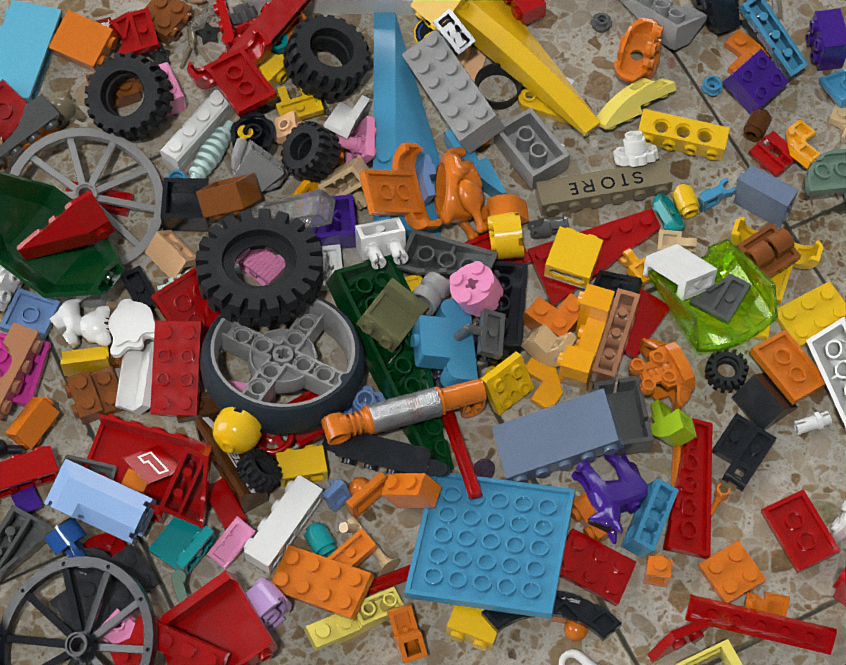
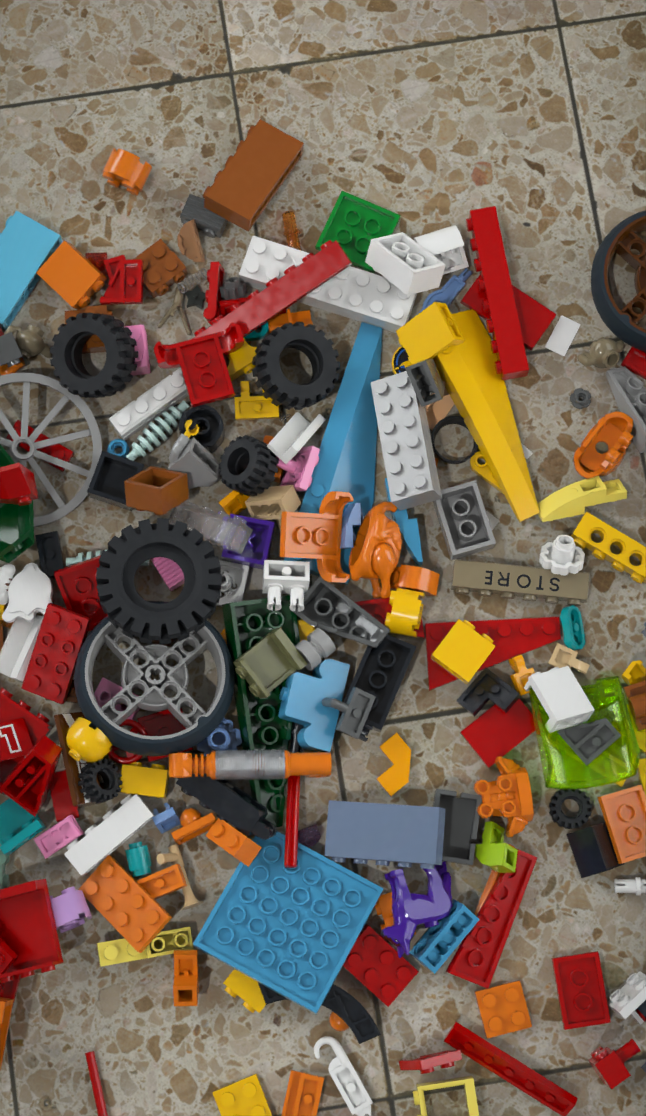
camera: 20 degrees right, 15 degrees up
(159, 56) = (141, 311): pearl dark grey piece -> none
(170, 253) = (90, 525): light nougat panel -> none
(284, 125) = (237, 426): light nougat brick -> none
(389, 580) = (187, 916): red axle -> none
(475, 288) = (355, 663): bright pink brick -> none
(504, 379) = (357, 759): yellow plate -> none
(546, 346) = (408, 735): tan brick -> none
(547, 227) = (453, 607): dark grey piece -> none
(558, 320) = (427, 712): orange brick -> none
(579, 359) = (455, 730): light orange wedge -> none
(615, 336) = (474, 747): nougat brick -> none
(659, 567) = (435, 987): orange brick -> none
(686, 201) = (594, 619): yellow brick -> none
(712, 197) = (619, 623): dark azure plate -> none
(719, 497) = (516, 933): orange hand -> none
(733, 438) = (552, 878): black plate -> none
(749, 457) = (560, 902): black plate -> none
(771, 603) = (526, 1053): orange plate -> none

